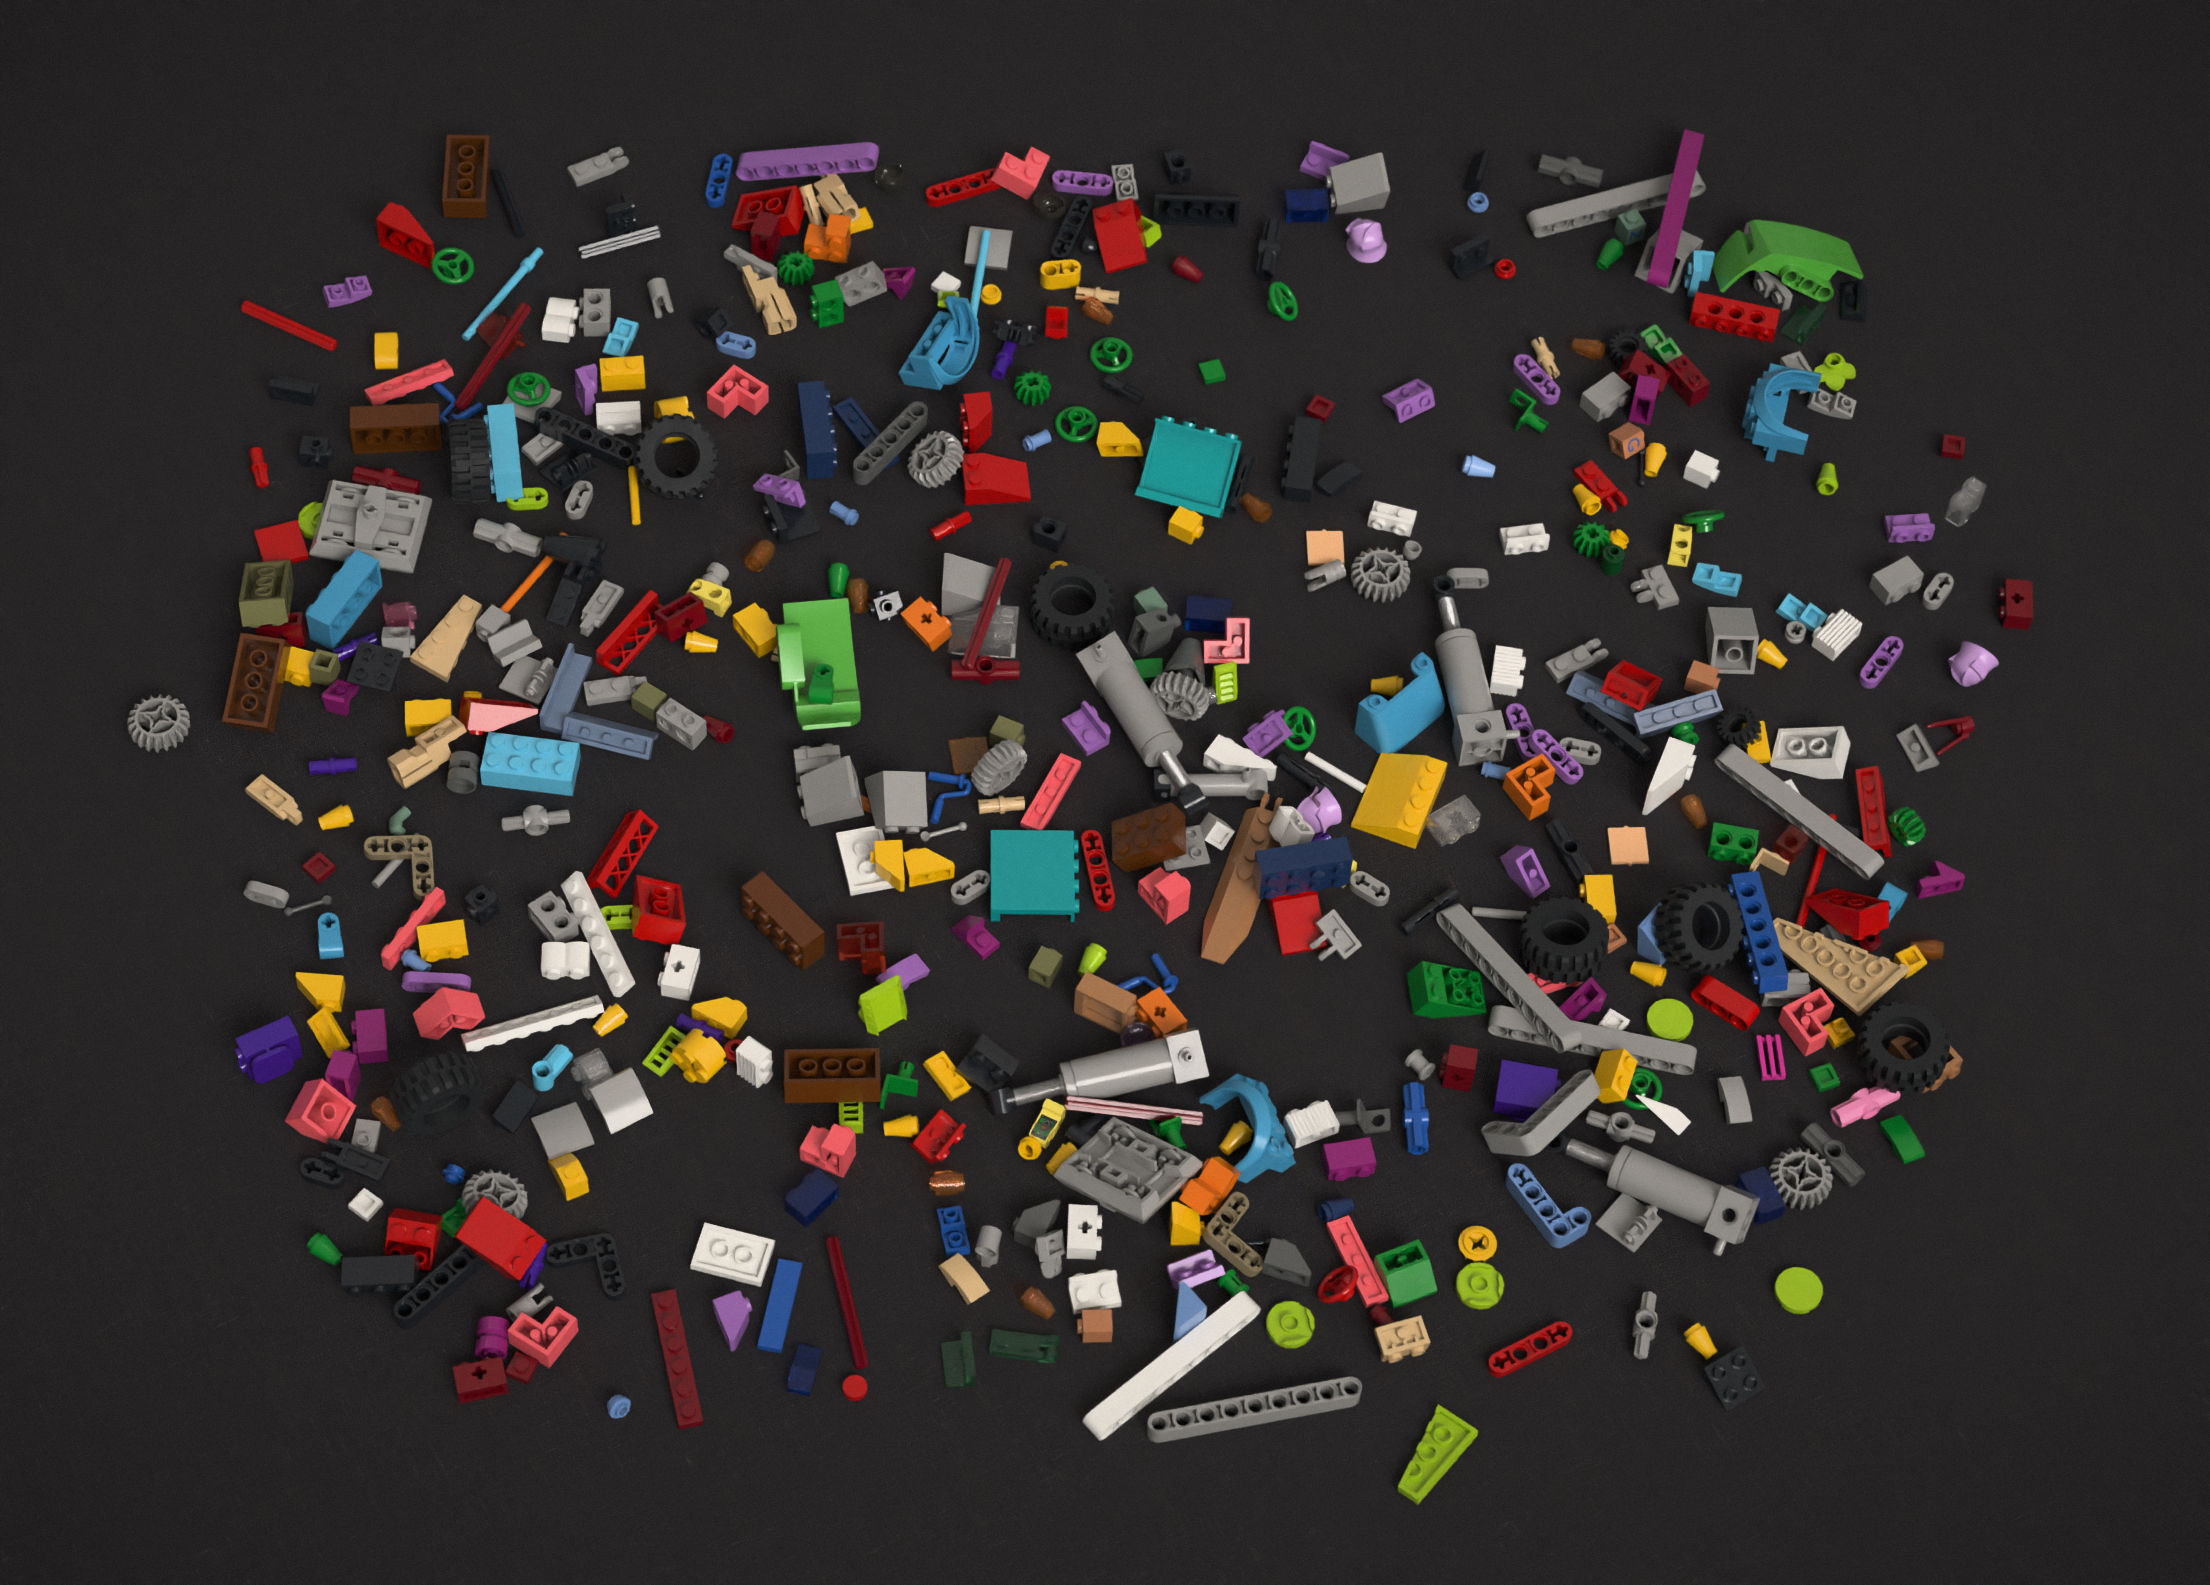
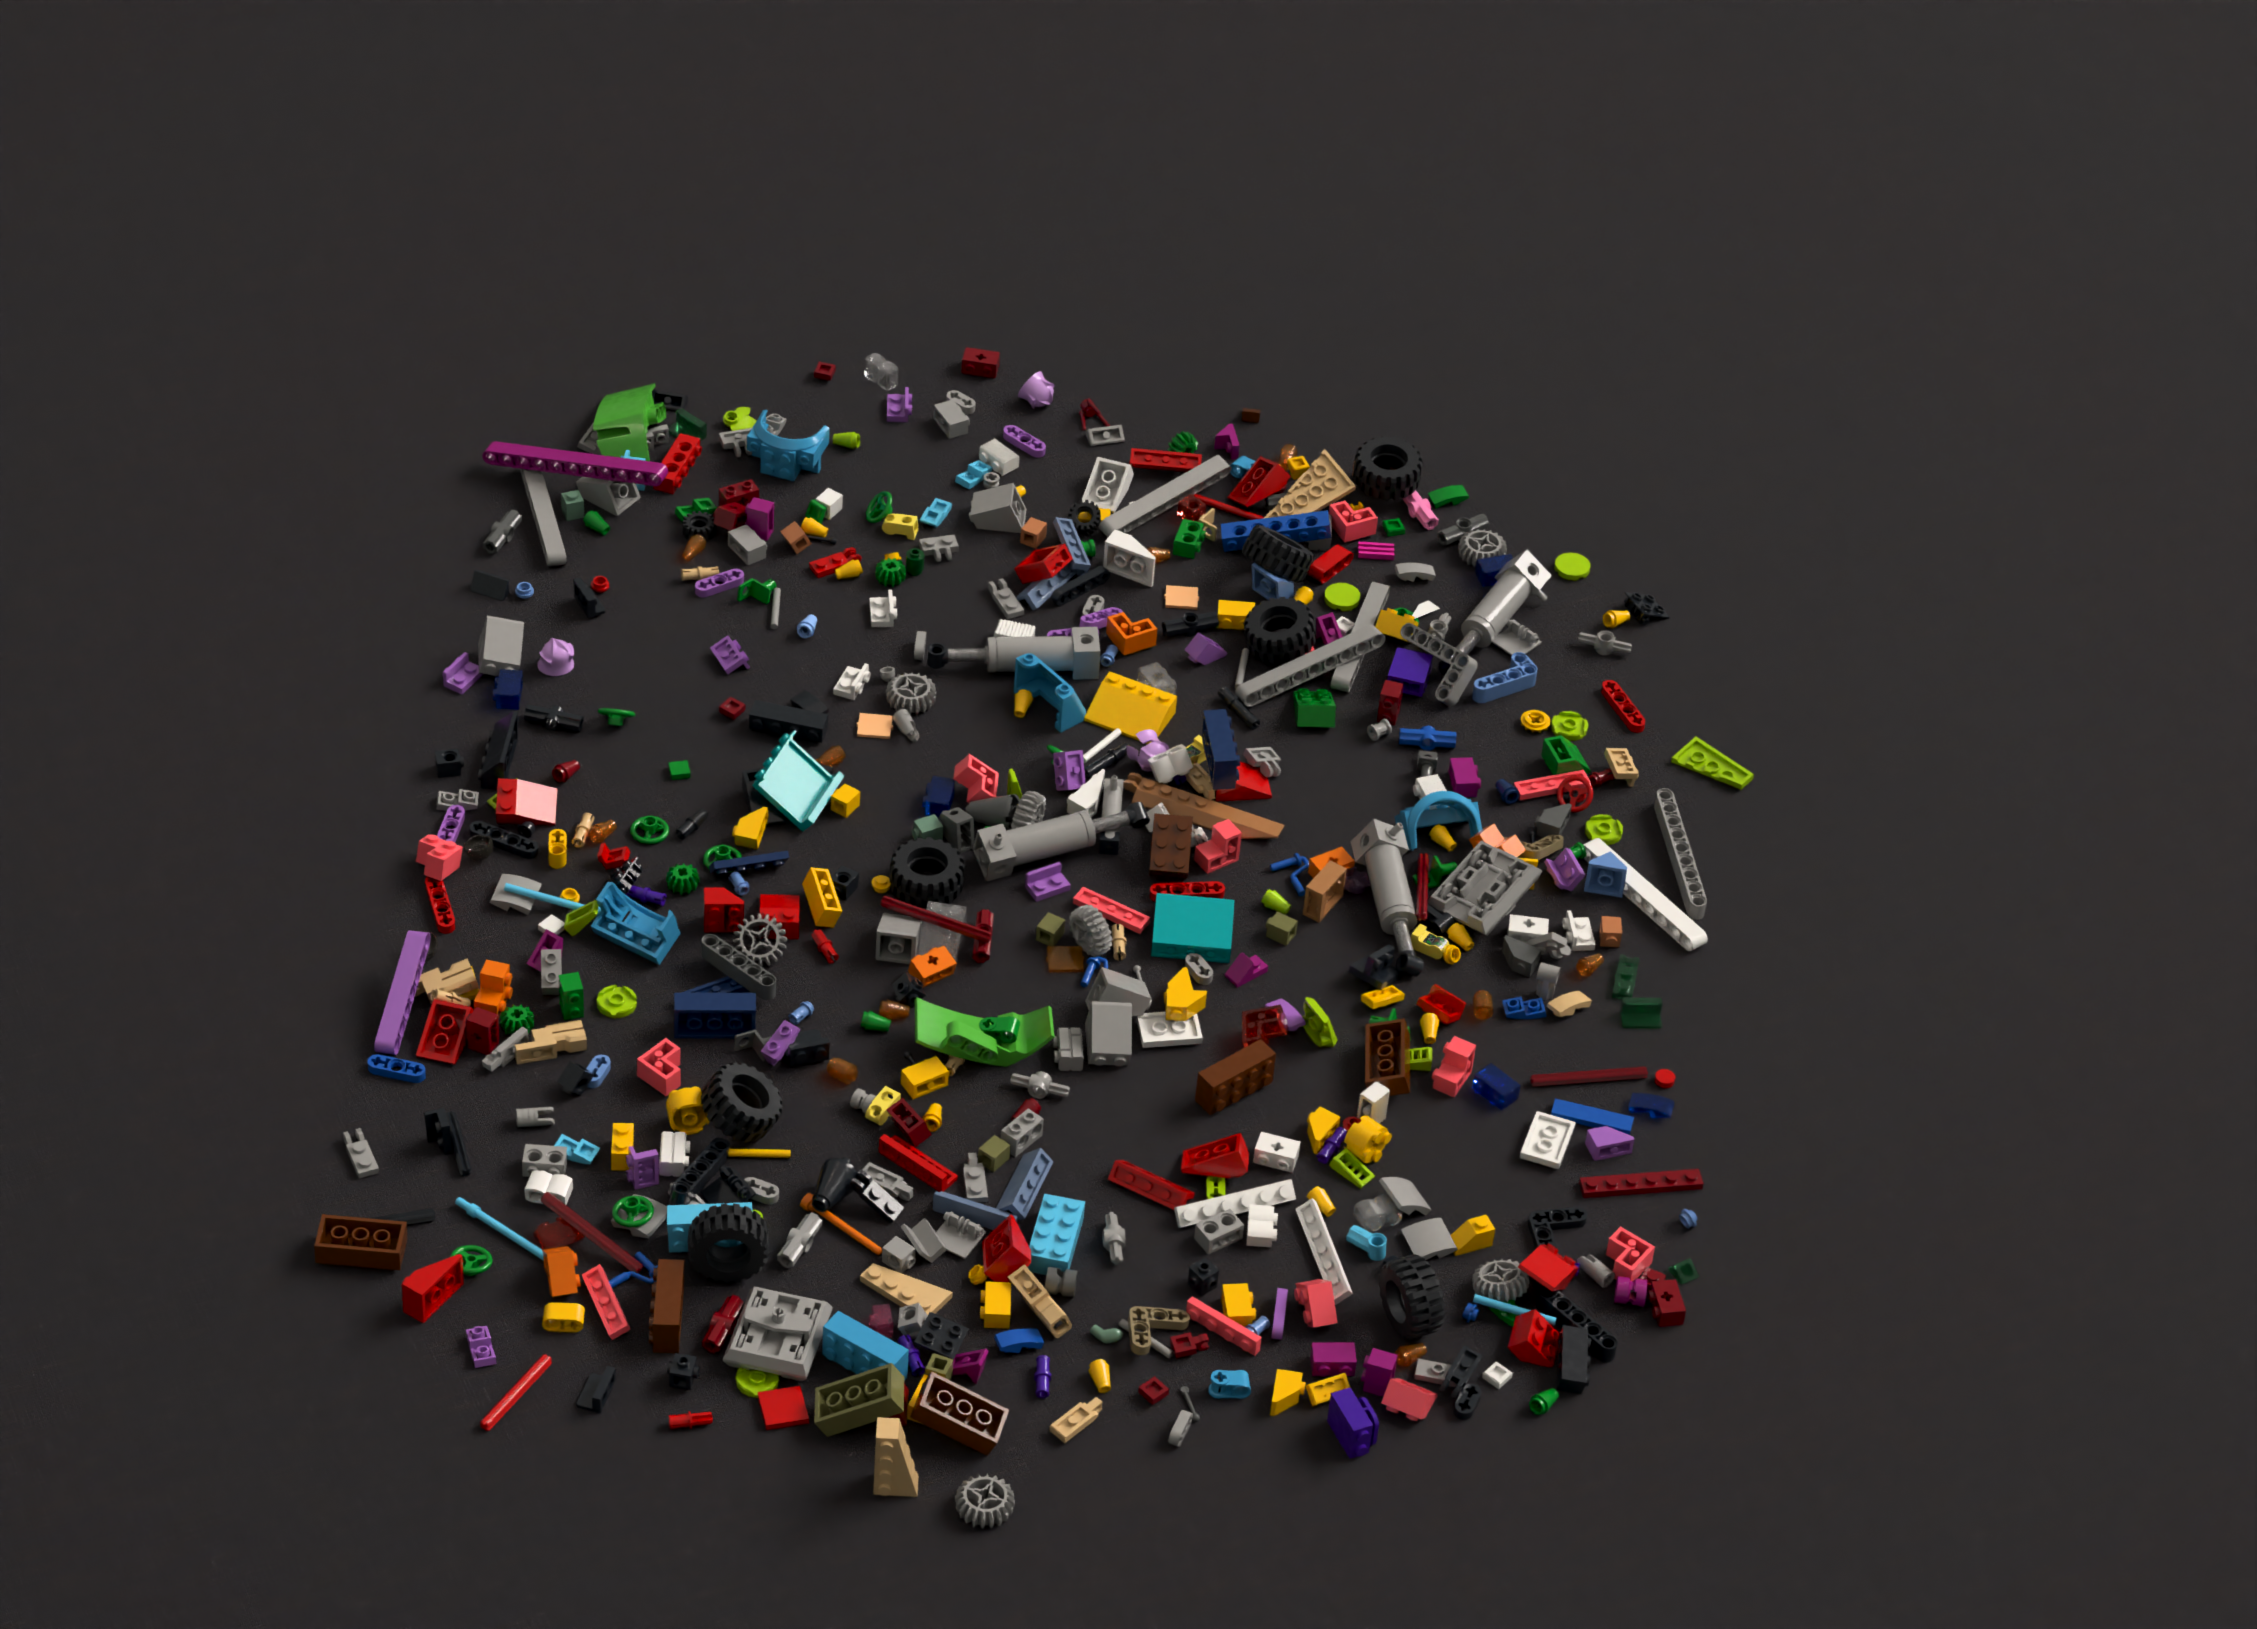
camera: 85 degrees left, 15 degrees down
(182, 624) = (893, 1464): none -> tan wedge
(380, 739) = (1015, 1339): none -> blue slope
(386, 895) = (1187, 1345): none -> dark red plate
(441, 332) = (560, 1268): none -> orange brick
(451, 1214) = (1508, 1307): none -> medium azure bar
(539, 1403) = (1684, 1271): none -> clear green slope
(759, 738) = (1040, 1085): none -> light grey axle
(842, 352) = (616, 1001): none -> lime tile
(1017, 512) = (822, 897): none -> yellow brick
(1067, 449) = (742, 864): none -> dark blue plate
(1173, 865) = (1200, 835): none -> white axle
(1506, 436) = (775, 608): none -> light grey bar
(1681, 457) = (816, 511): none -> green tile
(2008, 907) = (1250, 415): none -> reddish brown slope

